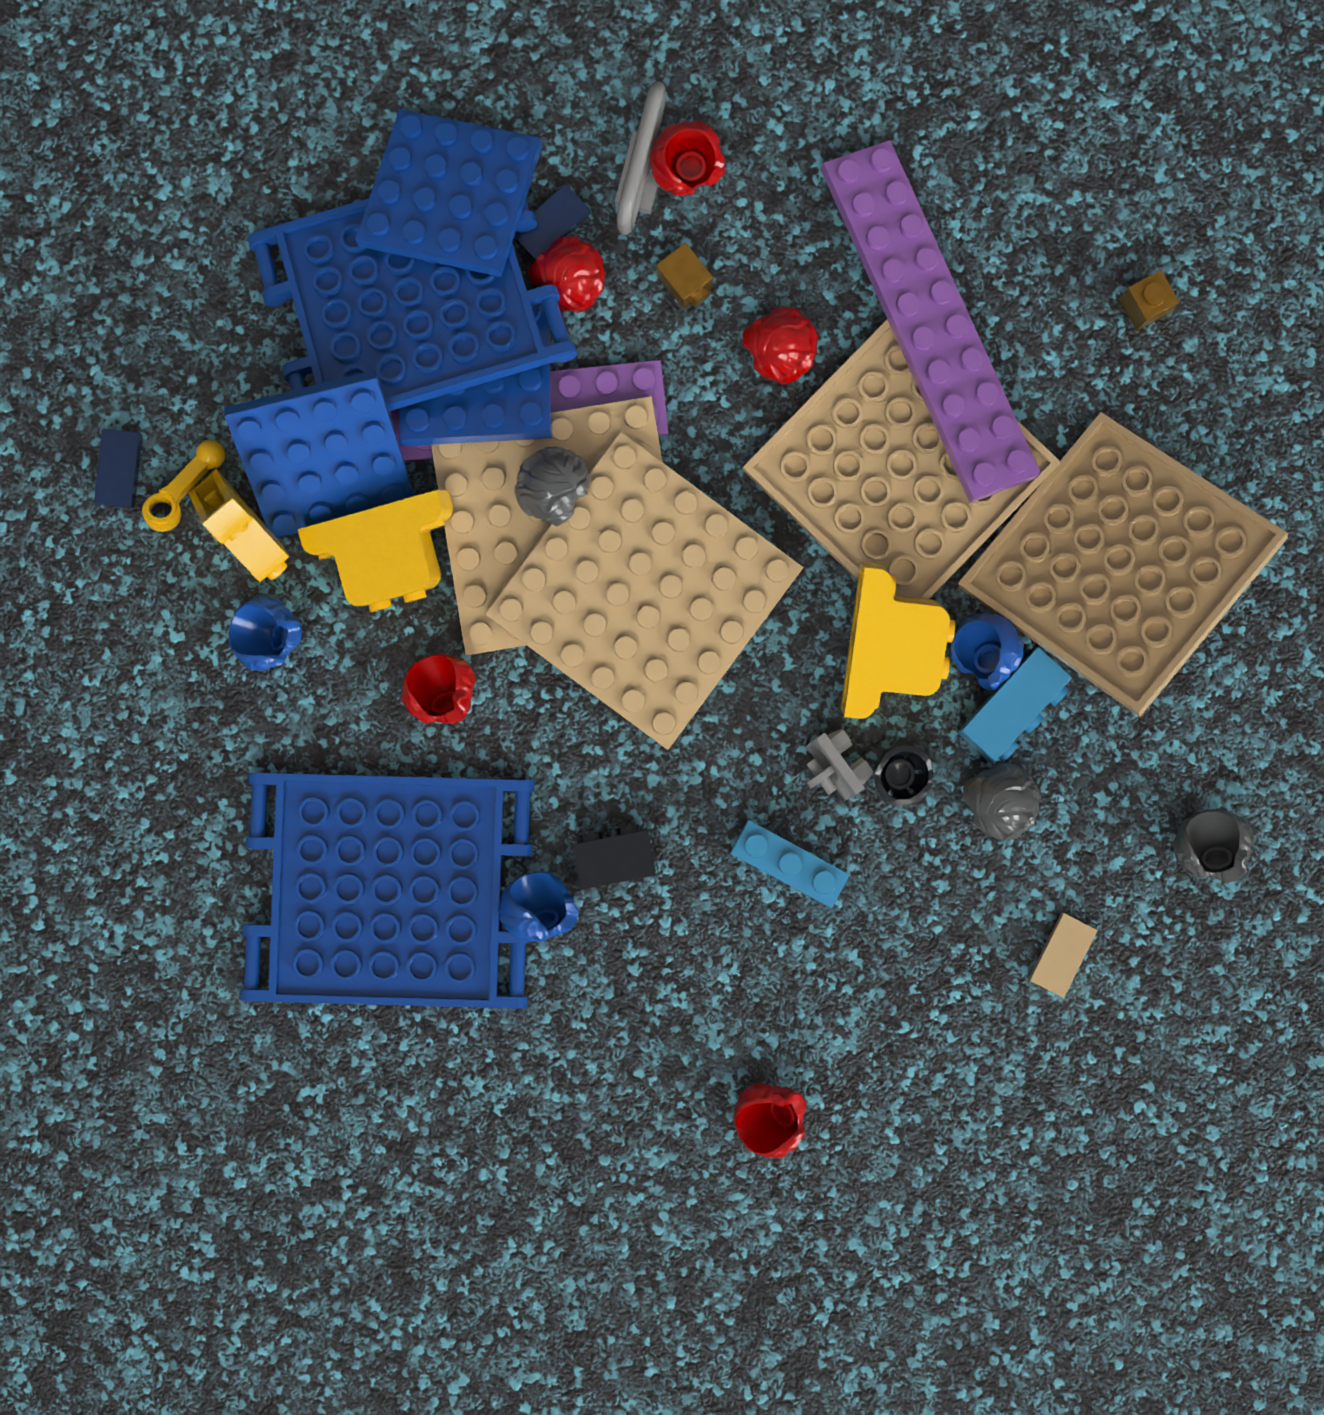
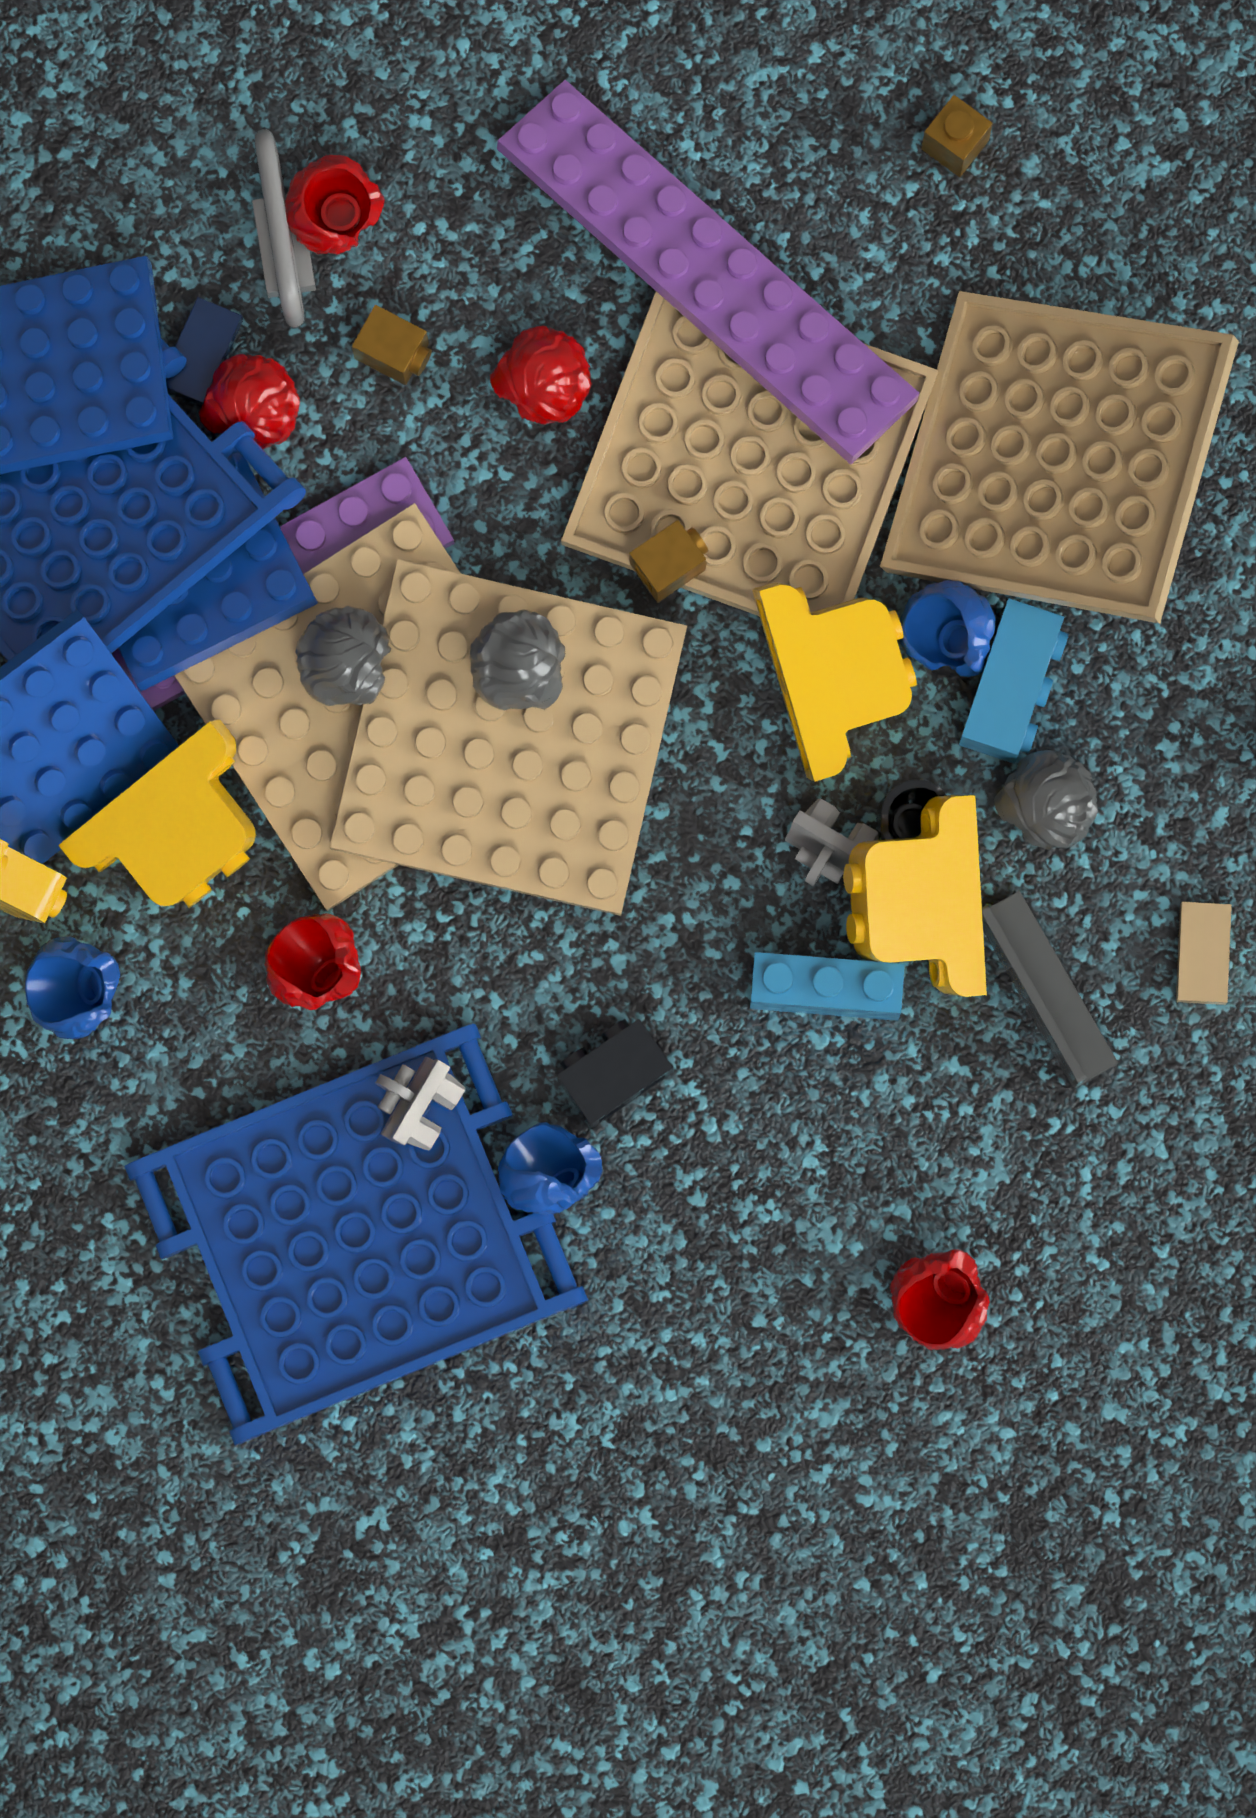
camera: 25 degrees left, 5 degrees down
(462, 816) = (428, 1084): none -> light grey hips
(672, 542) = (517, 661): none -> dark grey hair
(812, 515) = (669, 559): none -> pearl gold brick
(883, 833) = (923, 897): none -> yellow brick
(941, 932) = (1046, 990): none -> dark grey panel

